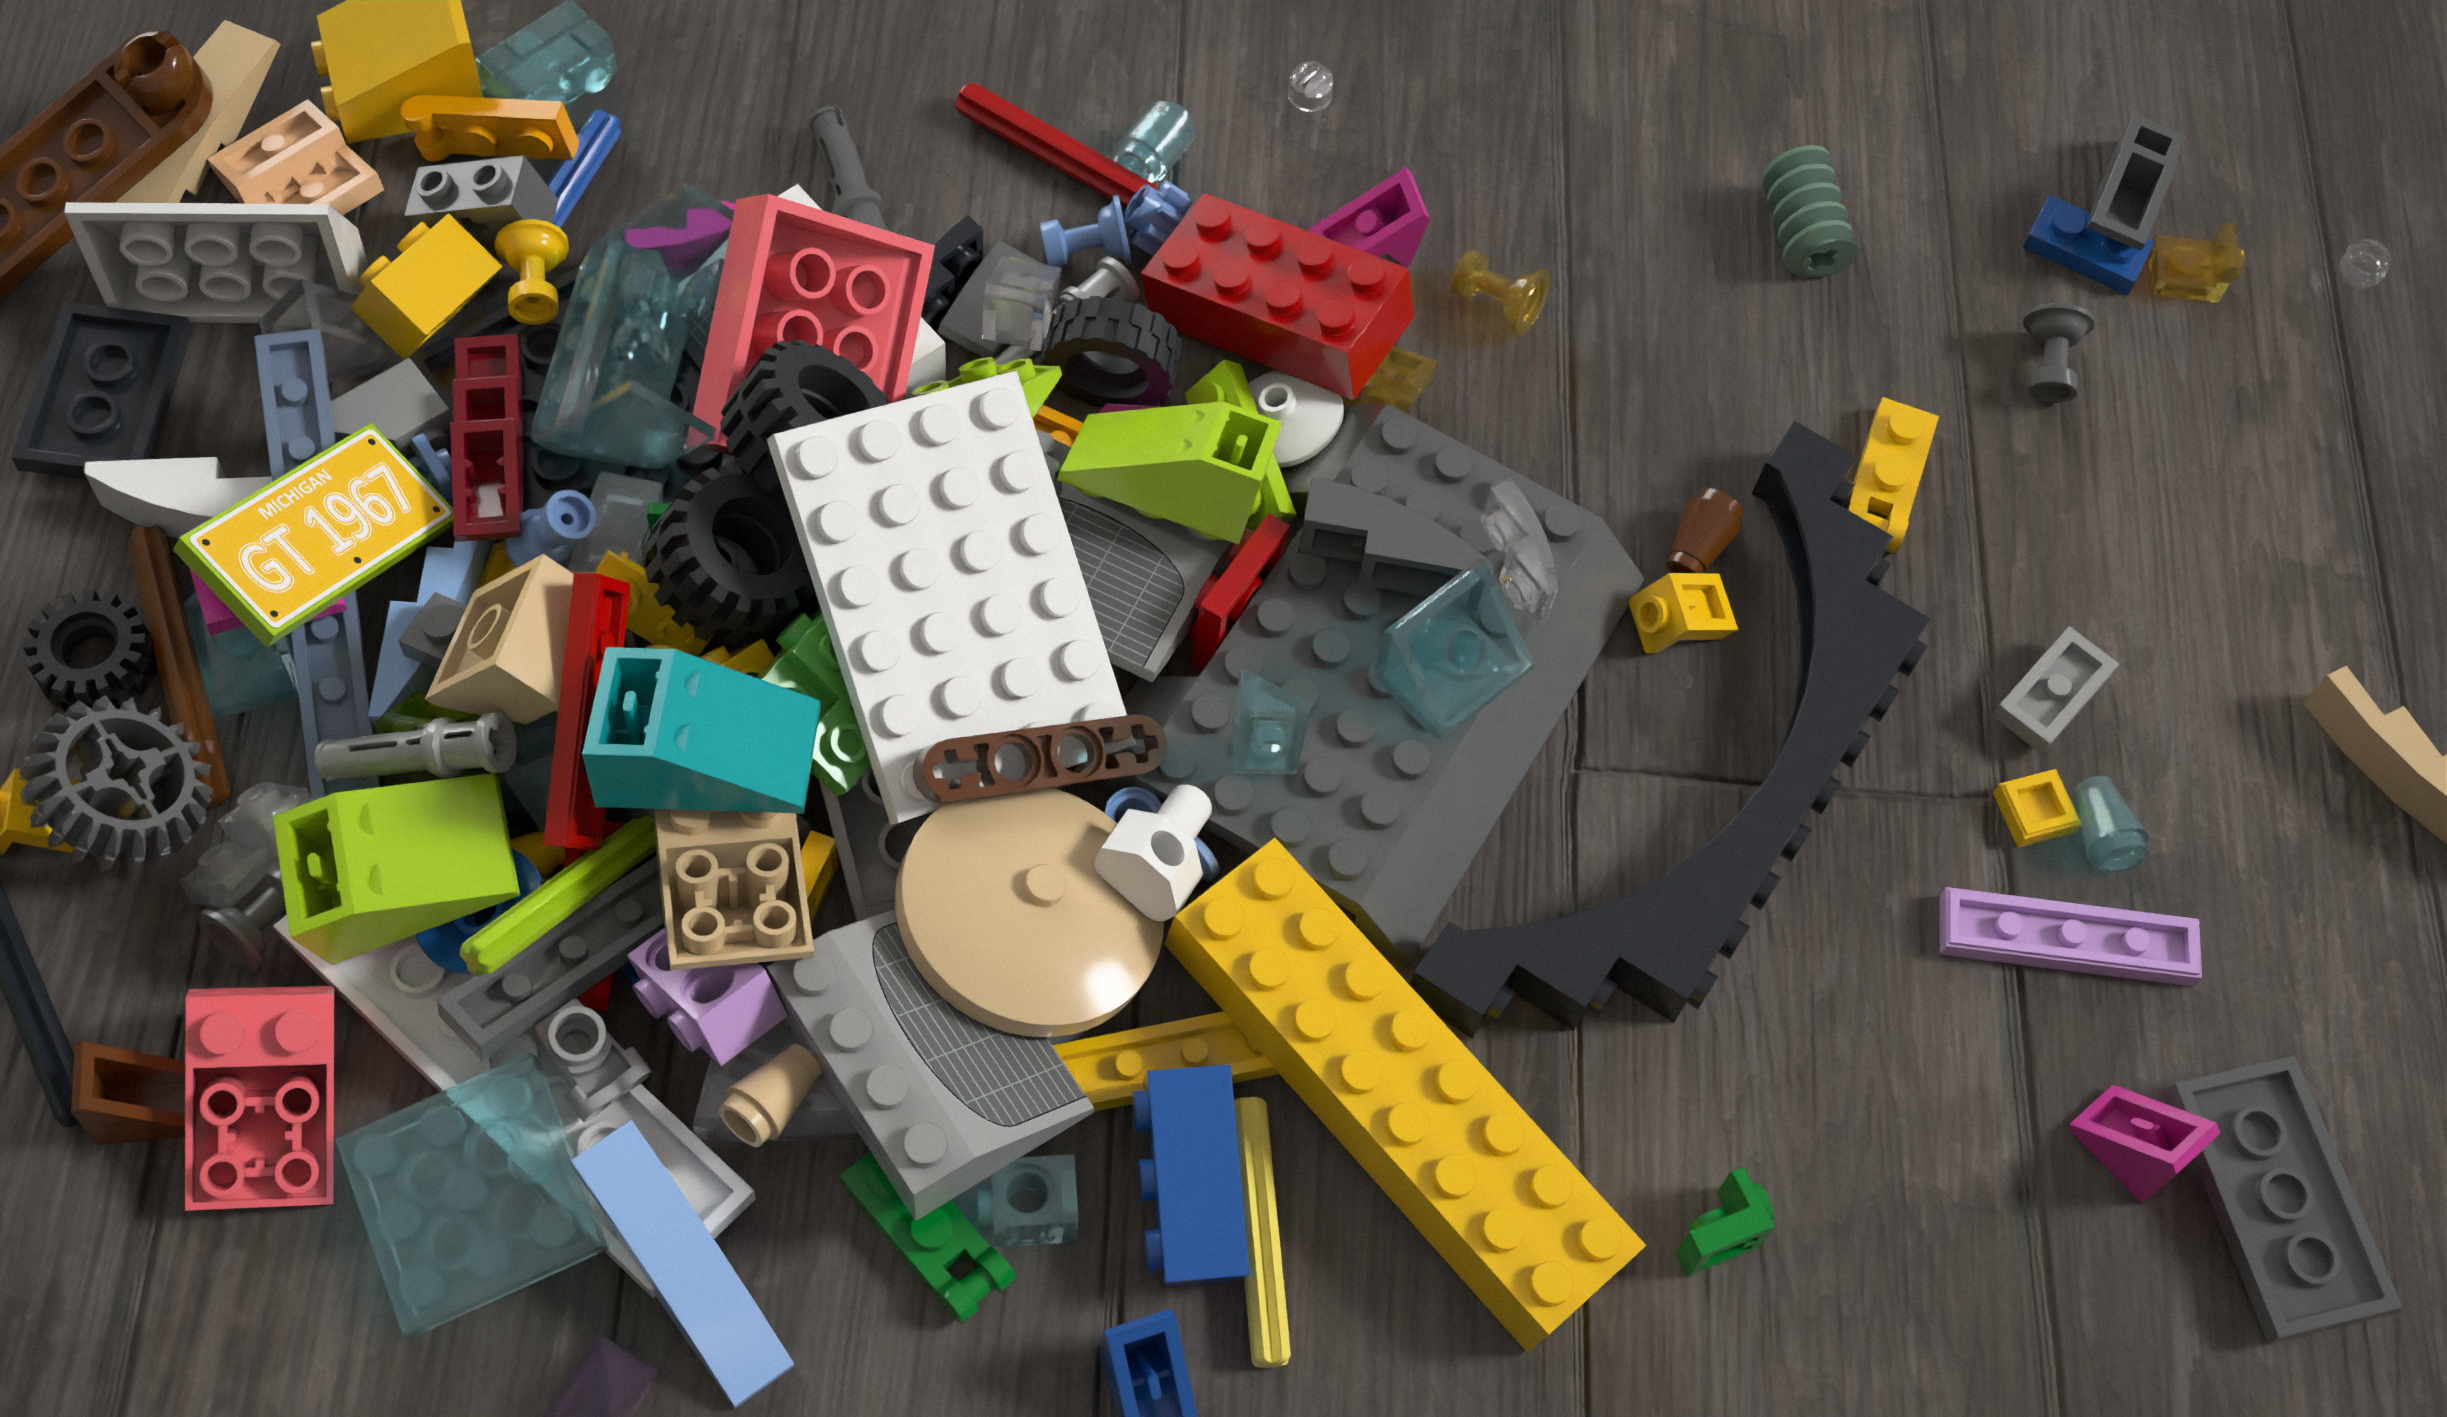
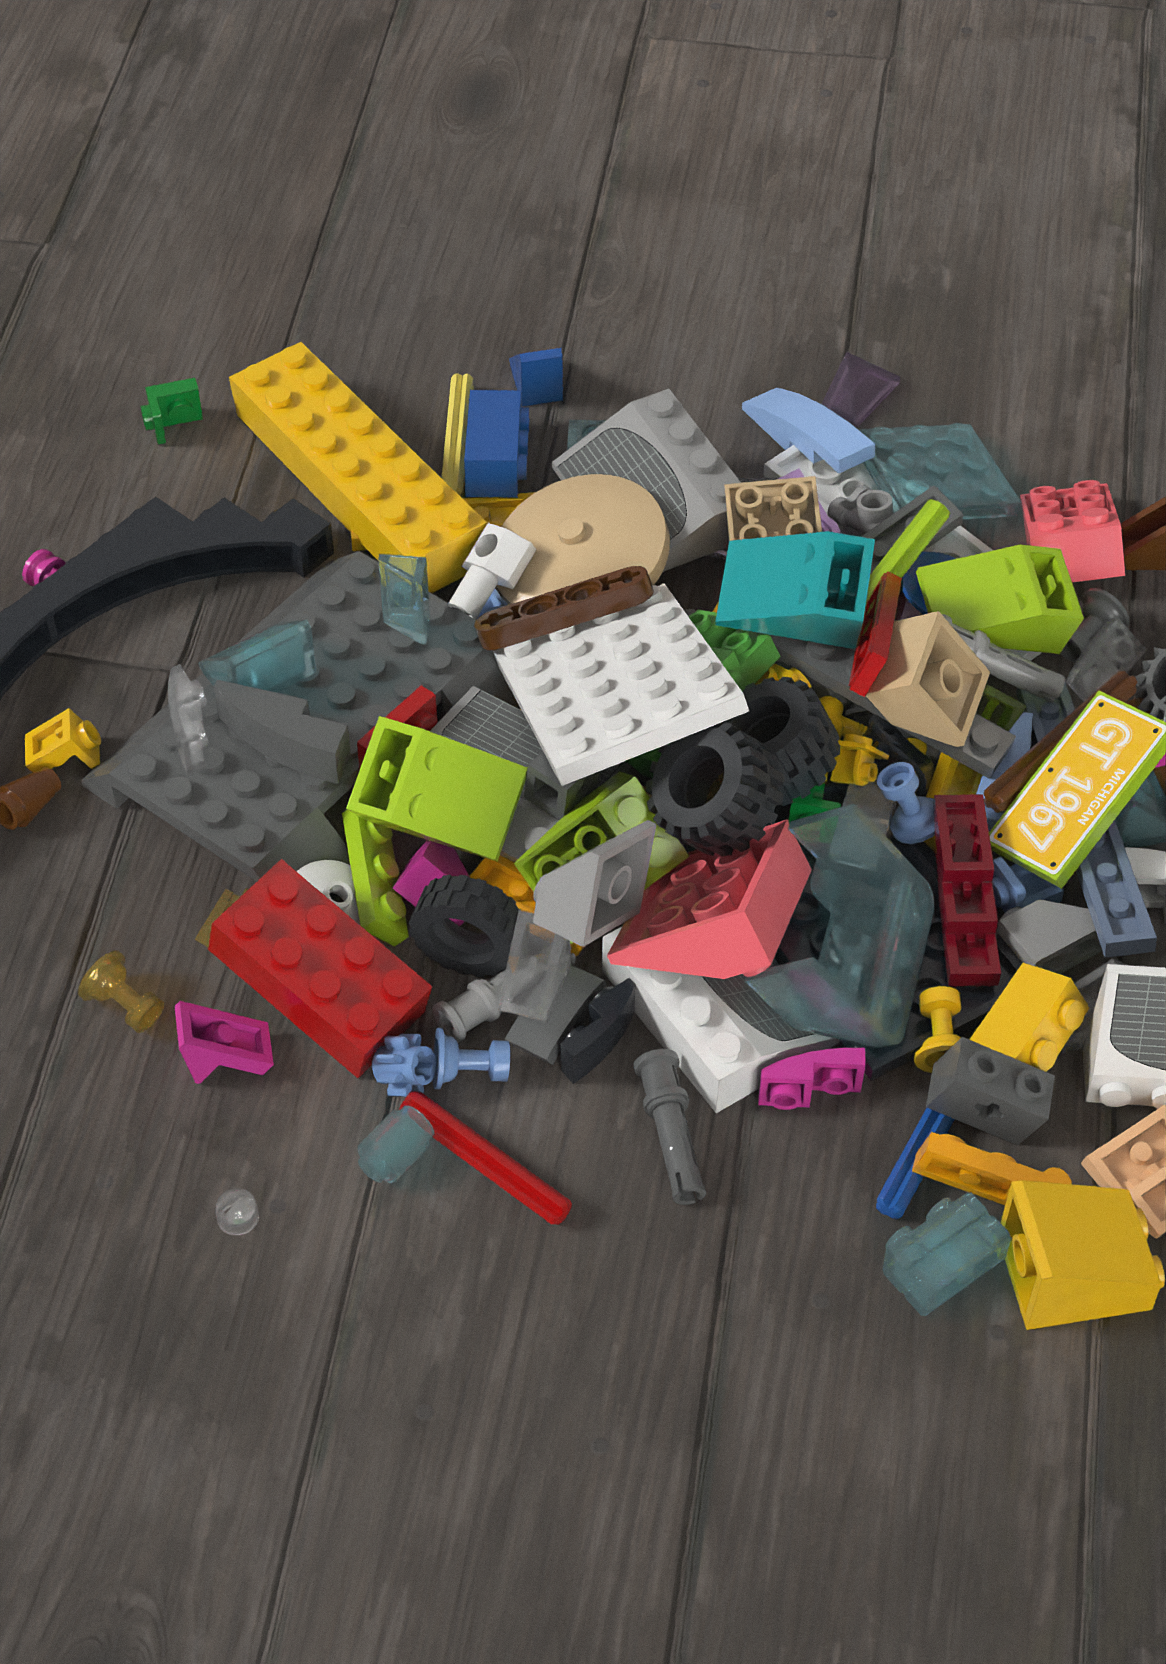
camera: 165 degrees left, 10 degrees down
(330, 660) = (1007, 786): none -> reddish brown axle
(769, 1096) = (760, 463): tan cone -> none
(957, 292) = (596, 888): none -> light grey slope
(1807, 890) = (41, 566): none -> dark pink bush

